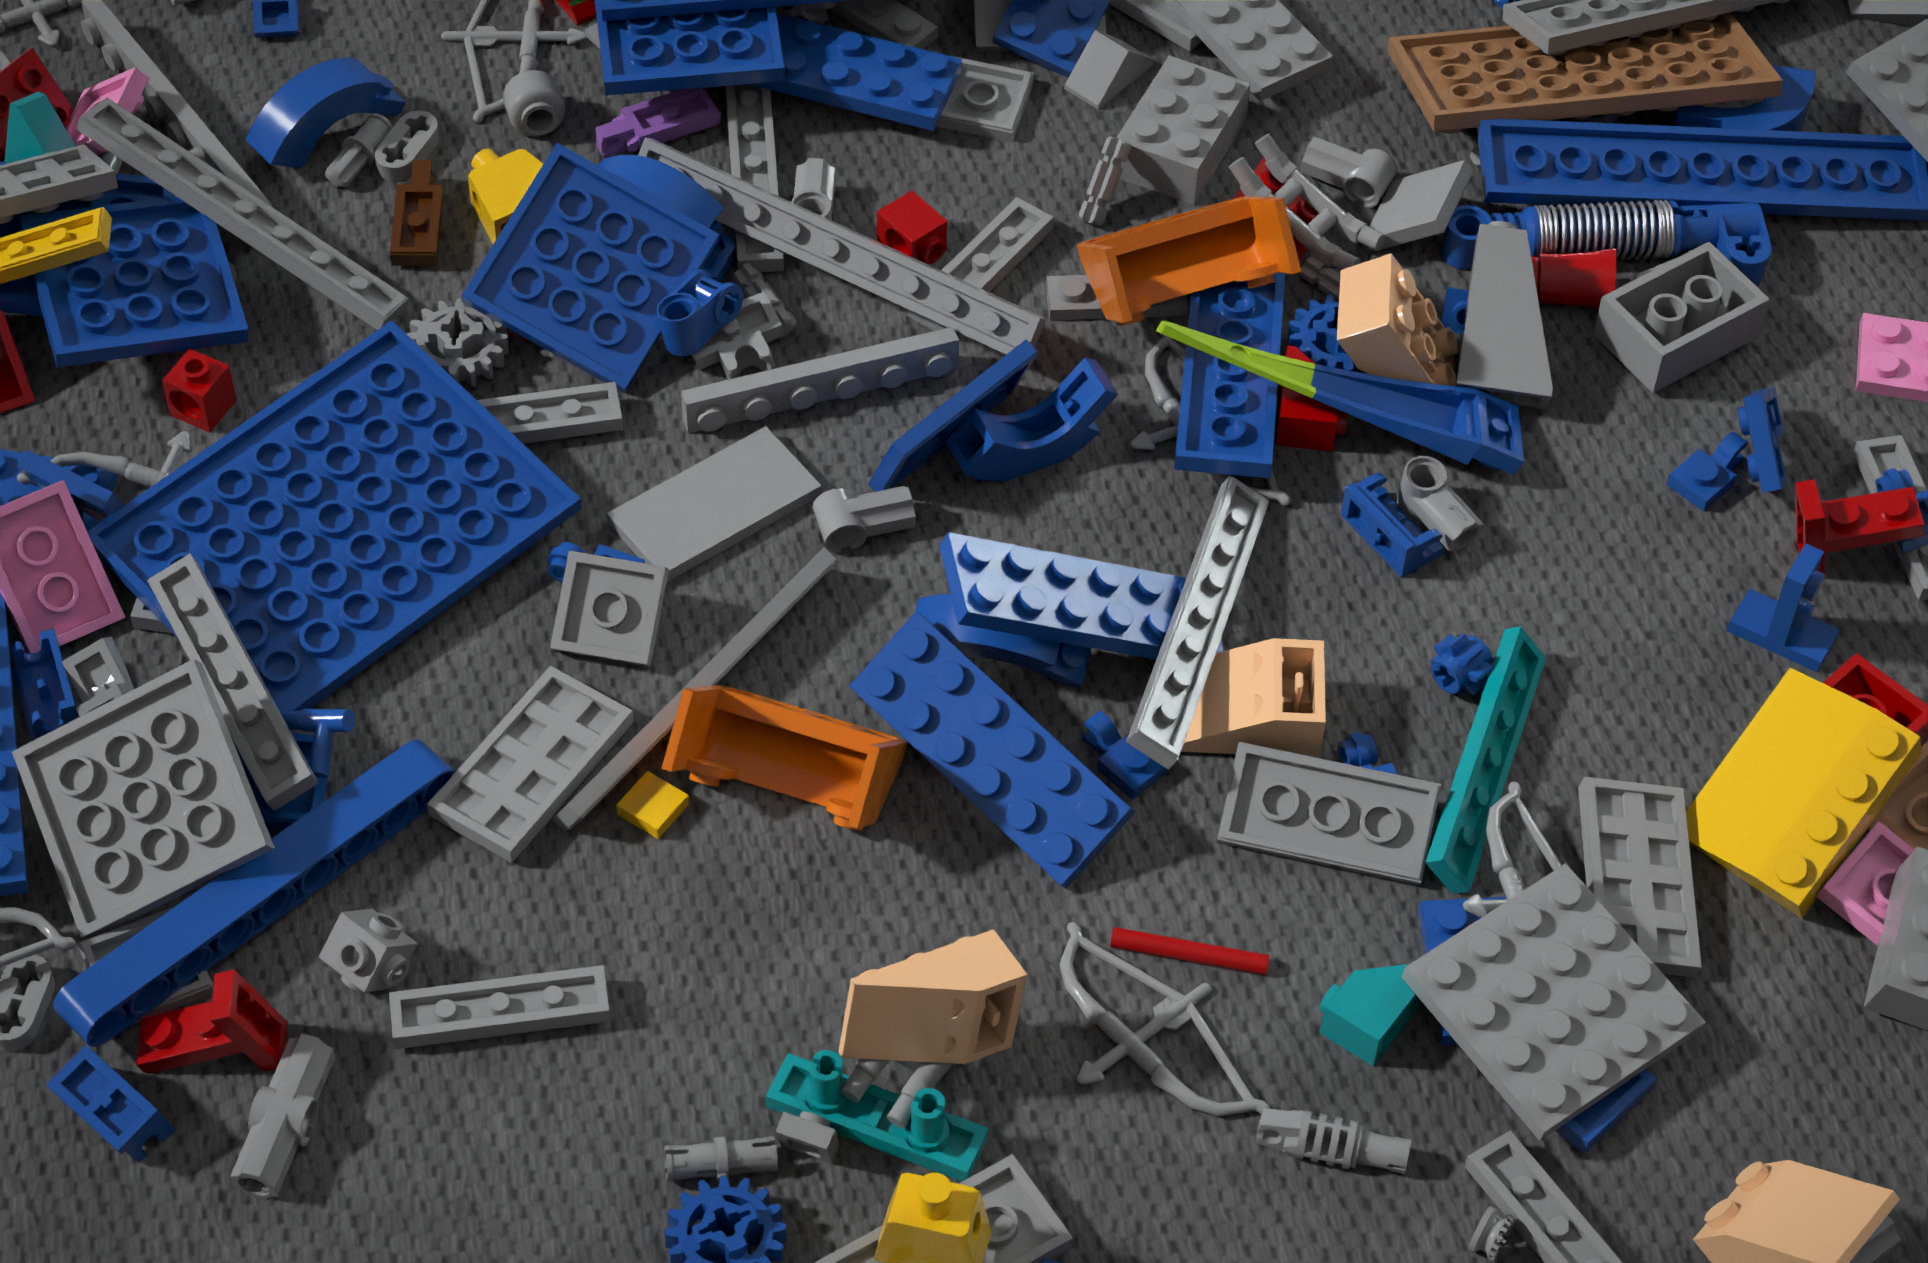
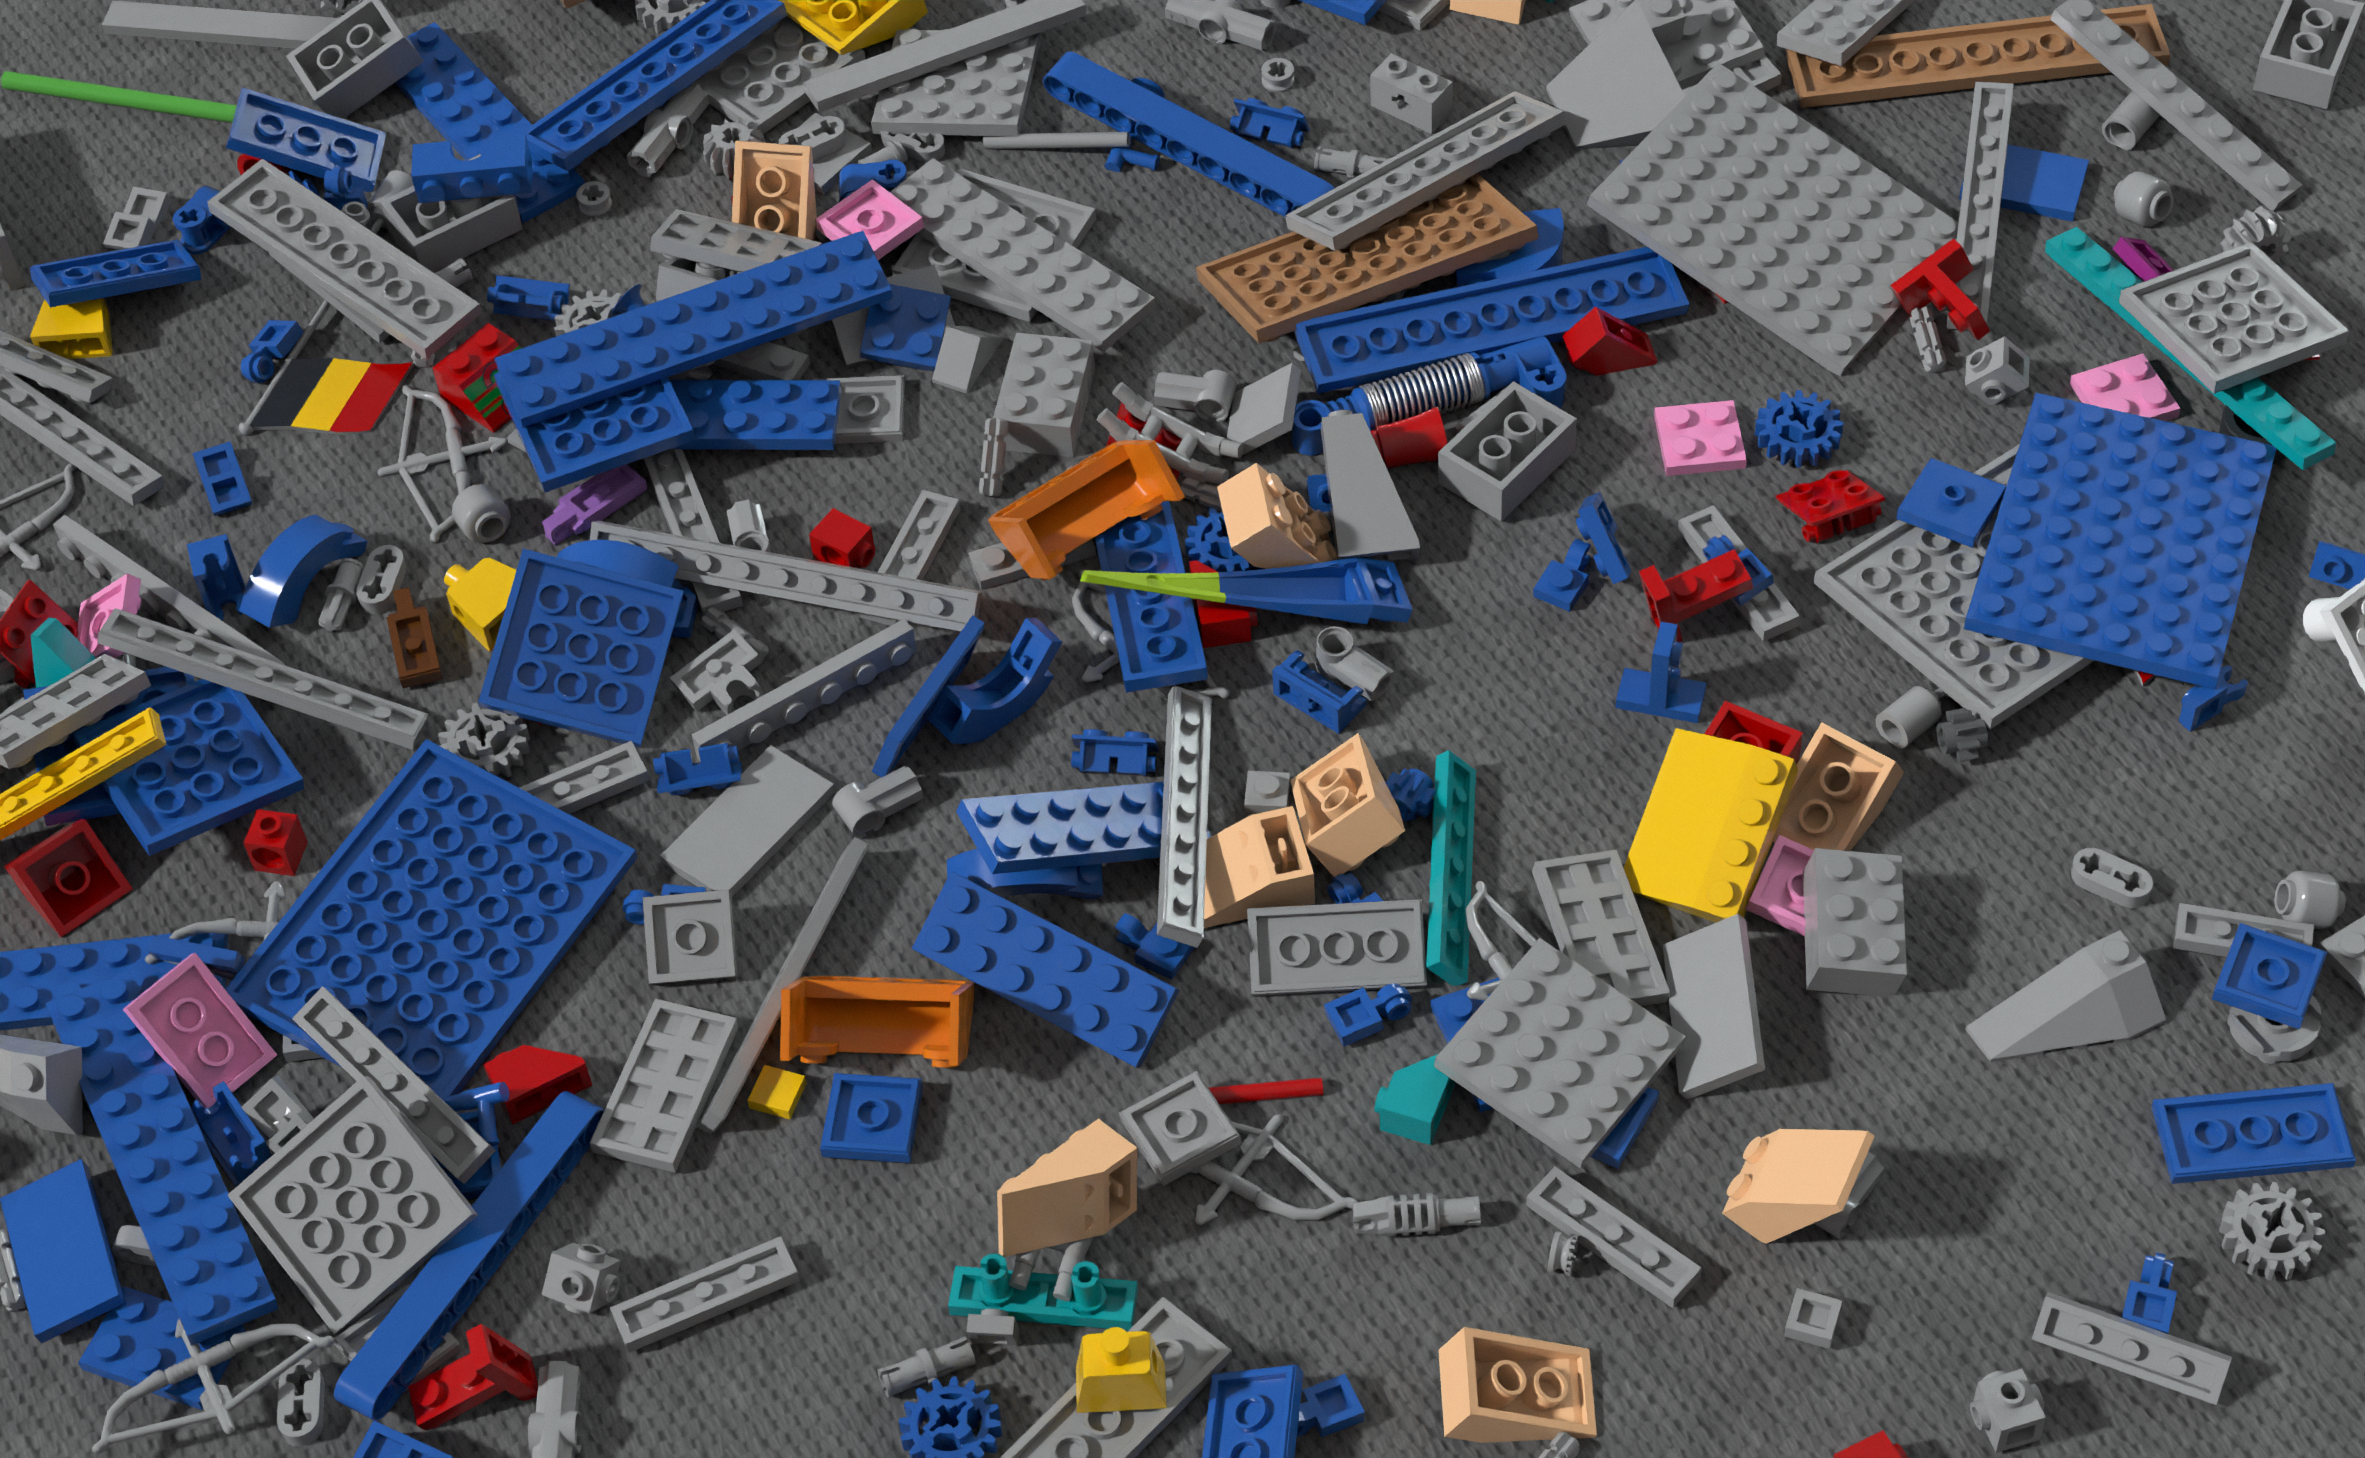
camera: 10 degrees left, 0 degrees up
(231, 93) = (216, 574): none -> blue hinge
(391, 716) = (536, 1078): none -> red slope
(694, 312) = (683, 662): blue piece -> none
(695, 435) = (715, 768): none -> blue hinge
(747, 861) = (871, 1118): none -> blue plate
(1090, 968) = (1180, 1128): none -> light grey tile
(1160, 534) = (1099, 749): none -> blue hinge
(1301, 618) = (1266, 791): none -> light grey plate
(1331, 897) = (1358, 1016): none -> blue plate
(1385, 660) = (1346, 807): none -> light nougat slope
(1748, 997) = (1714, 1006): none -> light grey tile
(1827, 231) = (1607, 344): none -> red slope

